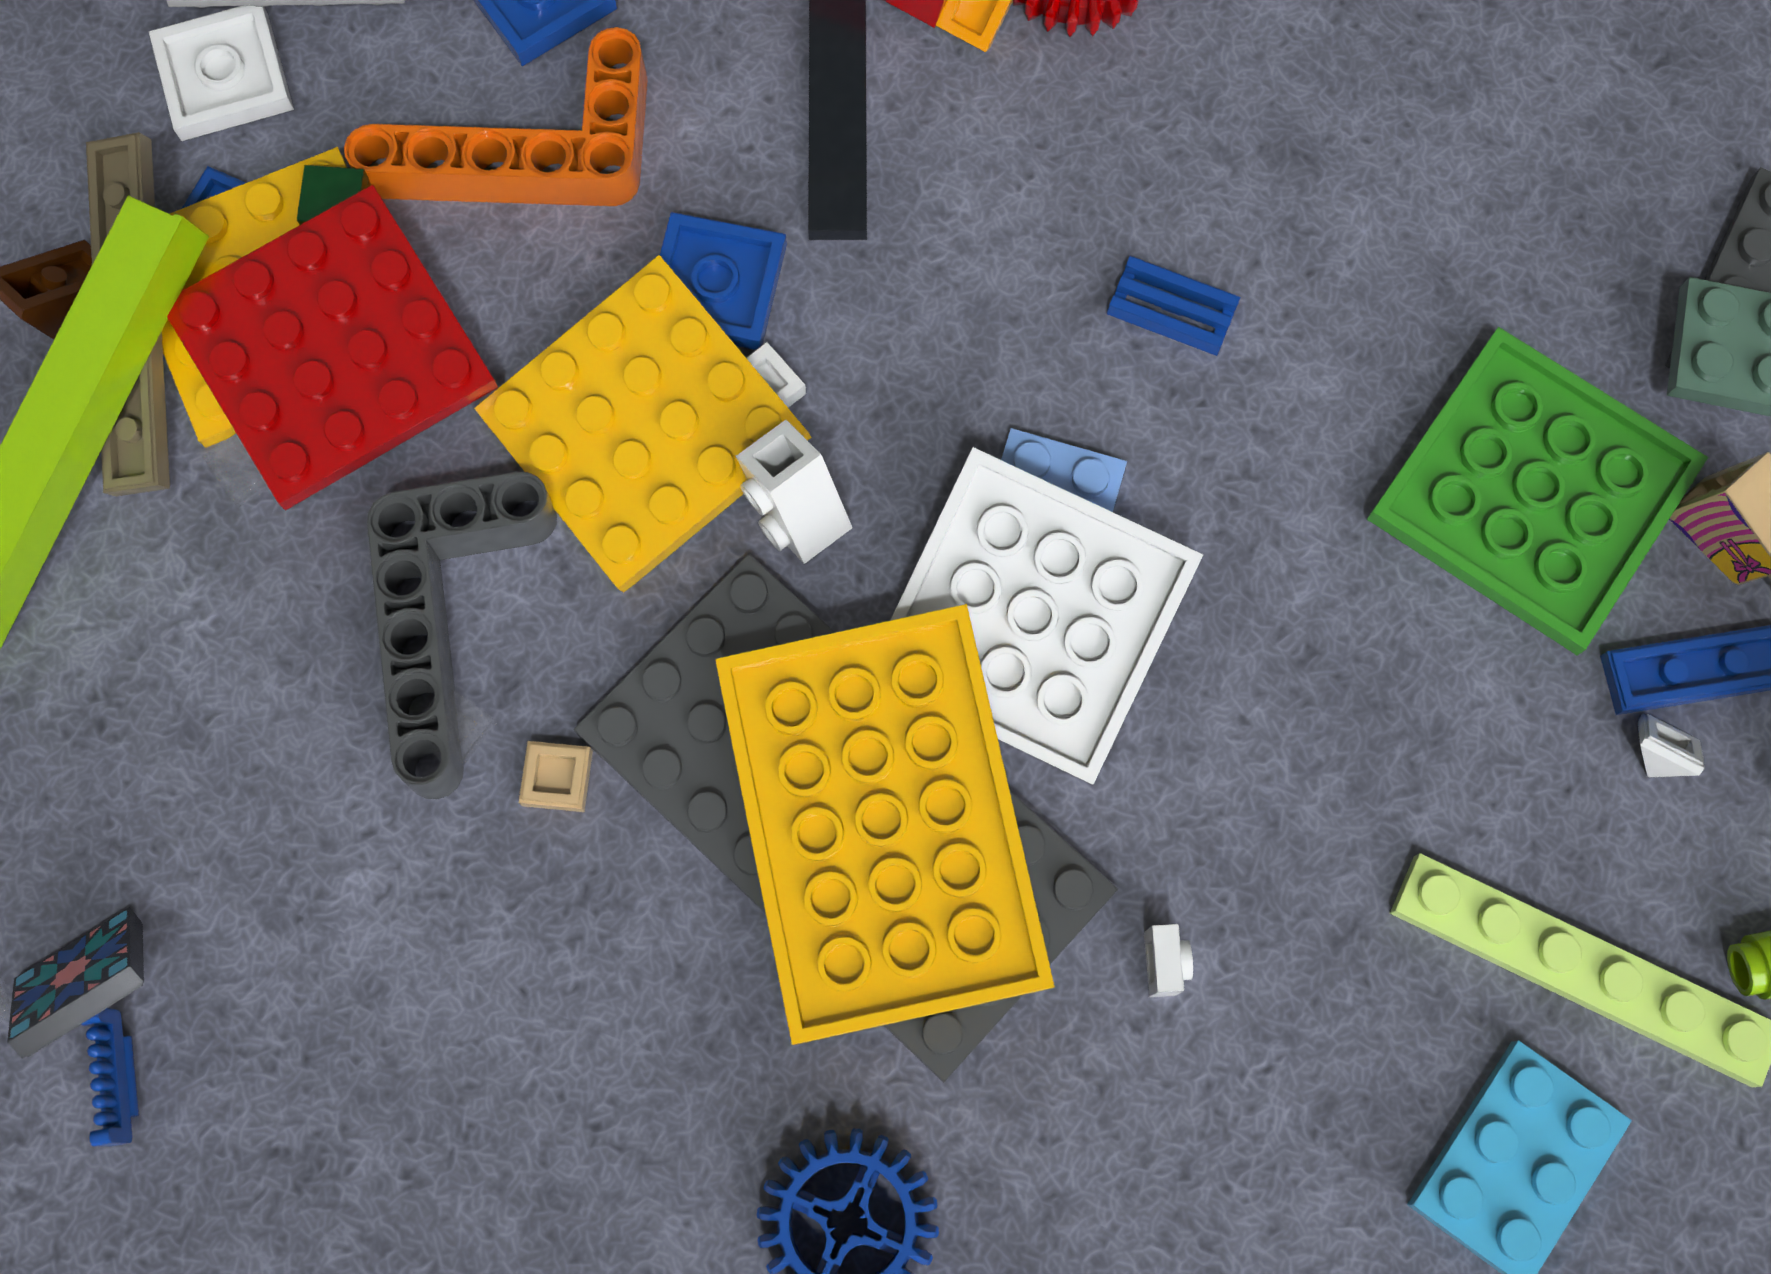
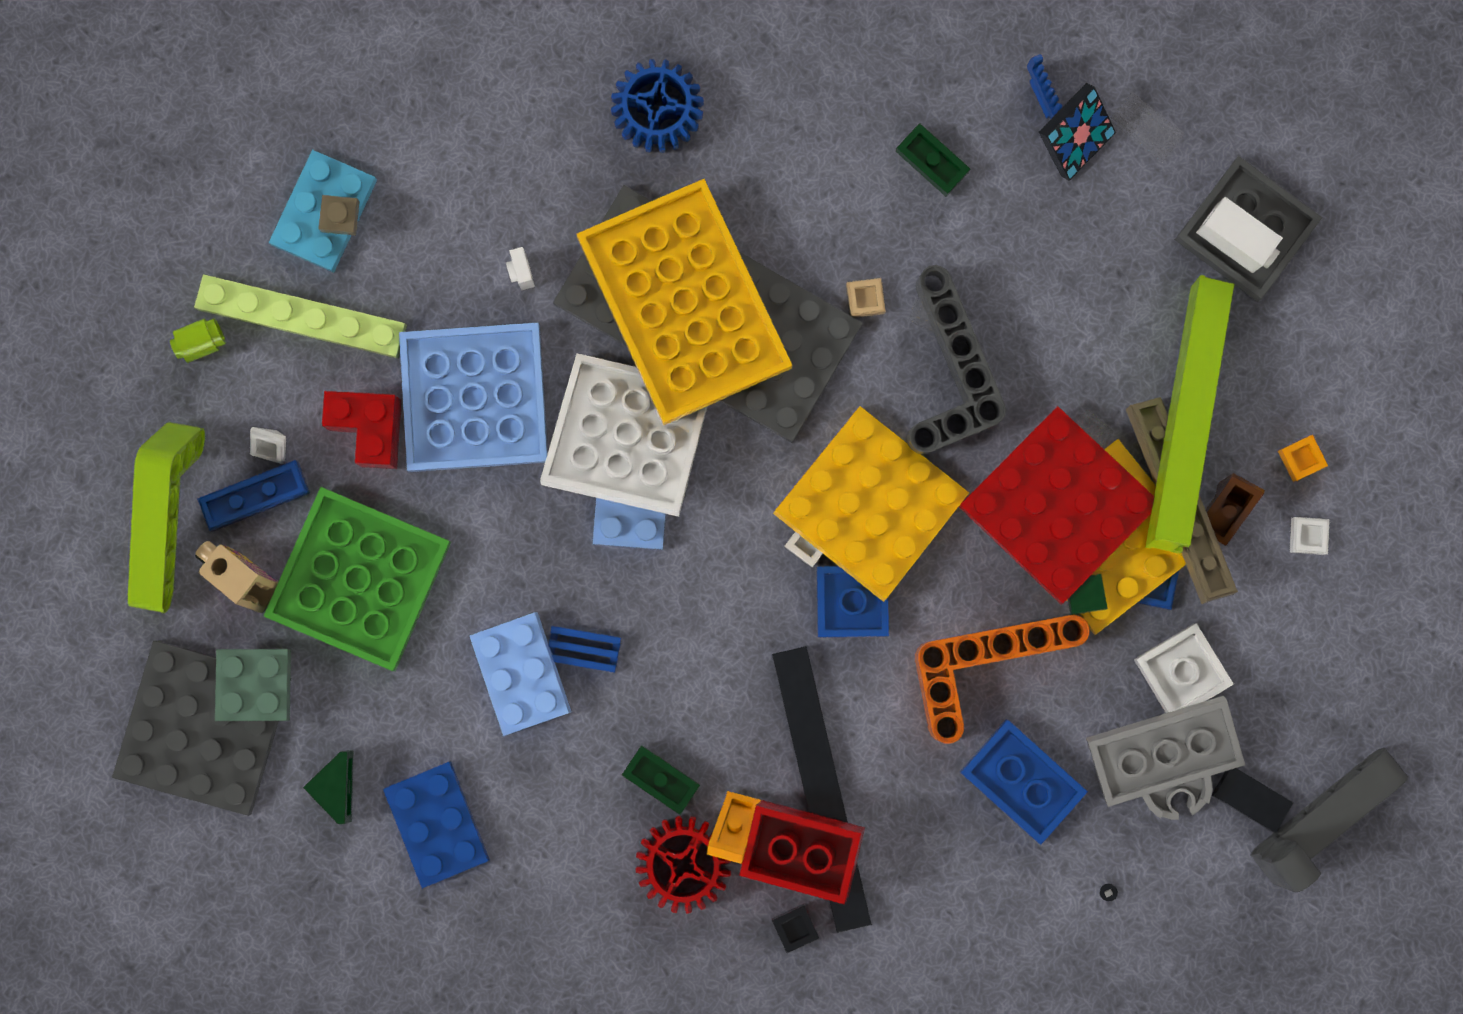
camera: 165 degrees right, 10 degrees up
(361, 999) = (932, 160): none -> dark green plate
(793, 492) = (774, 471): white brick -> none
(1087, 85) = (660, 779): none -> dark green plate
(1285, 287) = (520, 673): none -> light blue plate
(1291, 751) = (473, 397): none -> light blue plate
(1456, 100) = (436, 824): none -> blue plate
(1479, 747) = (372, 418): none -> red brick
(1495, 1135) = (339, 215): none -> dark tan plate
(1618, 174) = (334, 787): none -> dark green slope

